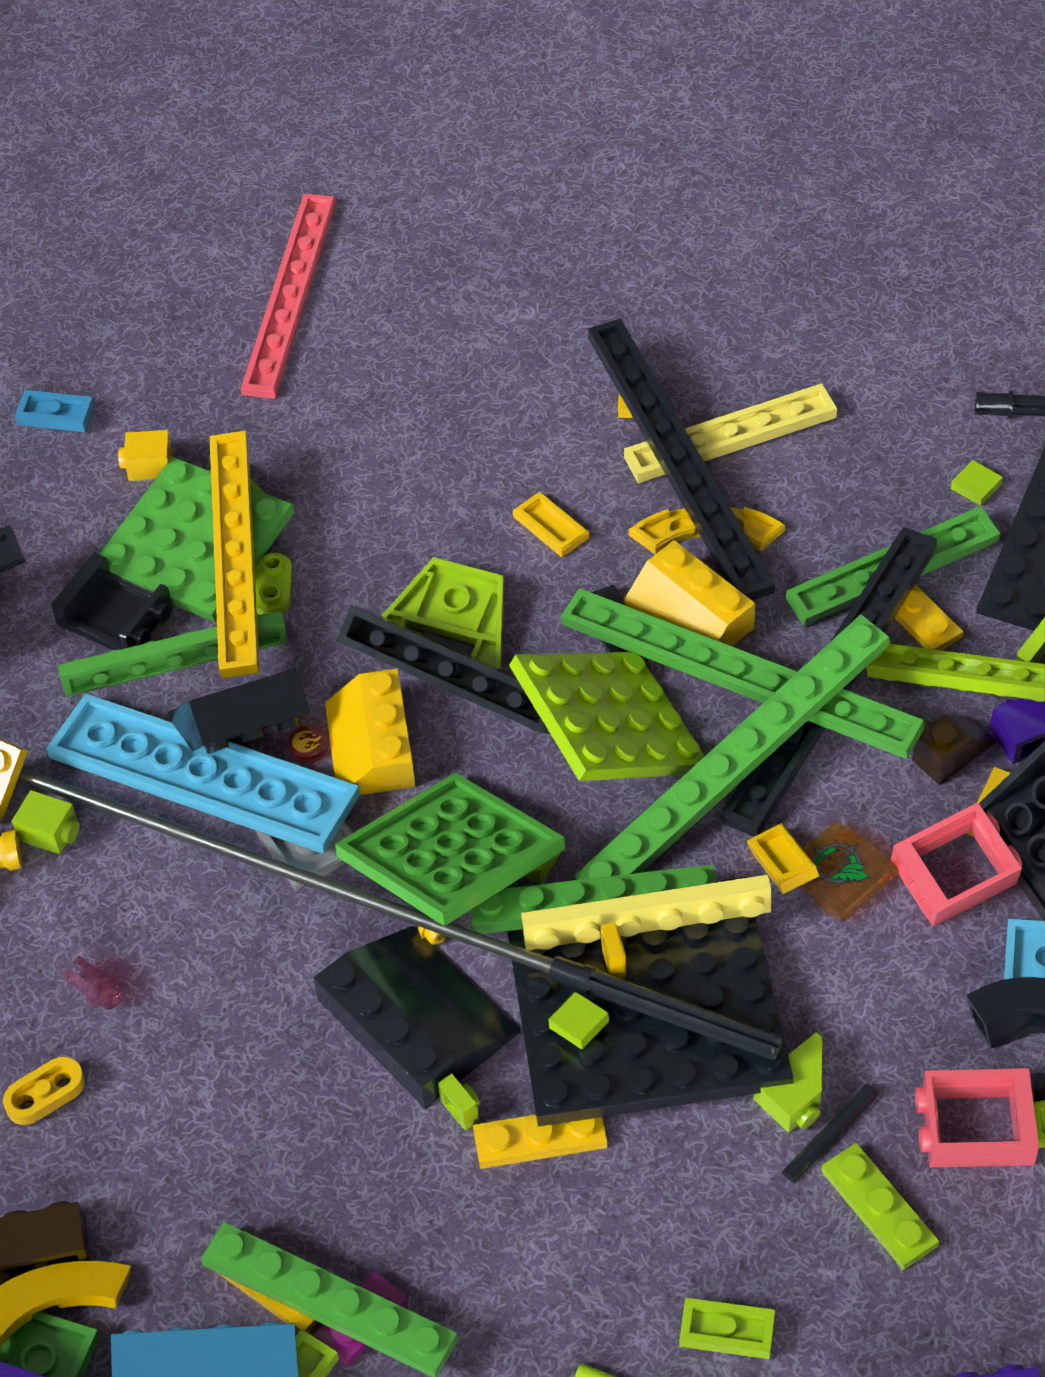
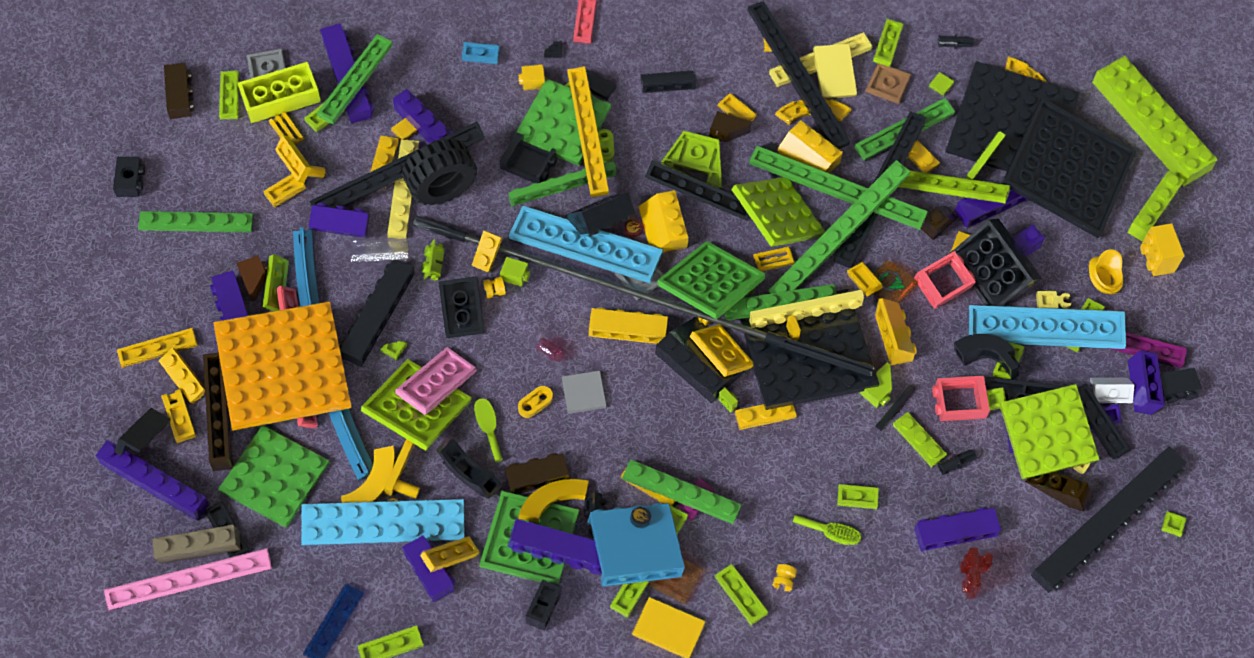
camera: 10 degrees left, 10 degrees up
(133, 1313) = (593, 502): none -> black tile
(152, 1075) = (583, 392): none -> light grey tile
(201, 410) = (554, 50): none -> black tile
(221, 1351) = (640, 517): none -> black tile
(262, 937) = (627, 325): none -> yellow brick
(277, 472) = (600, 85): none -> black tile
(417, 469) = (668, 81): none -> black panel
(457, 995) = (722, 350): none -> yellow tile
(528, 554) = (728, 127): none -> dark brown slope
(578, 1020) = (780, 361): lime tile -> none
(596, 826) = (774, 259): none -> yellow tile
(756, 453) = (835, 71): none -> light yellow tile
(839, 970) = (894, 332): none -> yellow slope
(866, 479) = (888, 83): none -> medium nougat tile
(870, 403) = (888, 42): none -> lime plate
(960, 1258) = (956, 461): none -> black axle

